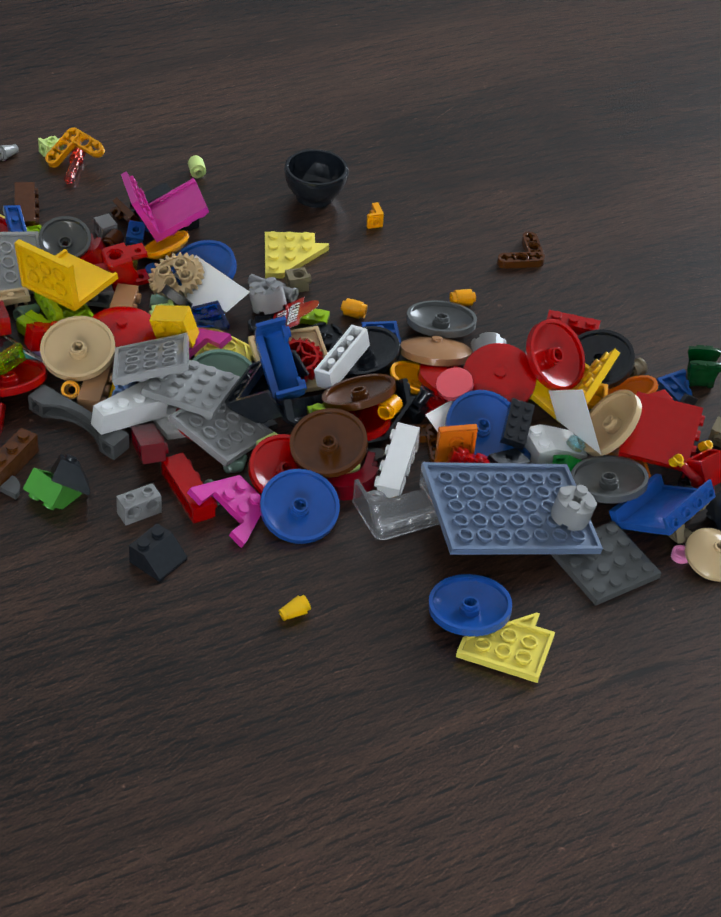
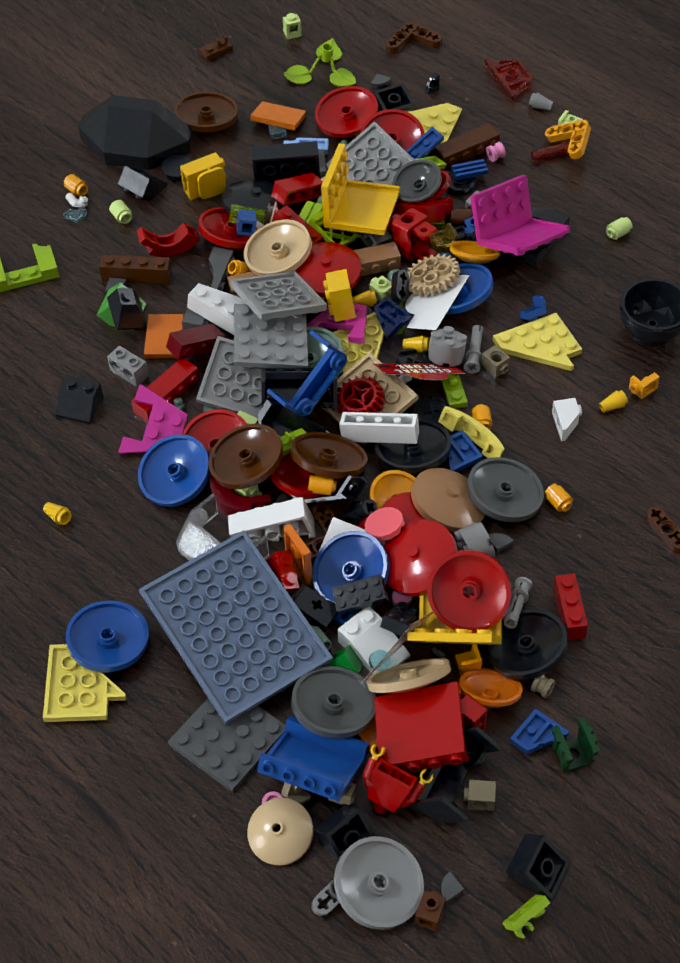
camera: 75 degrees right, 10 degrees up
(25, 357) = (246, 222): none -> blue brick
(44, 192) = (496, 151): none -> bright pink wheel
(60, 208) = (469, 169): none -> blue tile
(112, 471) = (157, 334): none -> orange tile
(246, 312) = (419, 343): none -> yellow cone
(255, 239) = (539, 309): none -> blue bracket
(374, 313) = (477, 432): none -> light yellow slope
(381, 236) = (614, 401): none -> yellow cone
(383, 265) = (566, 416): none -> white slope
(549, 414) = (400, 618): none -> black piece
(573, 507) = (253, 685): light grey brick -> none

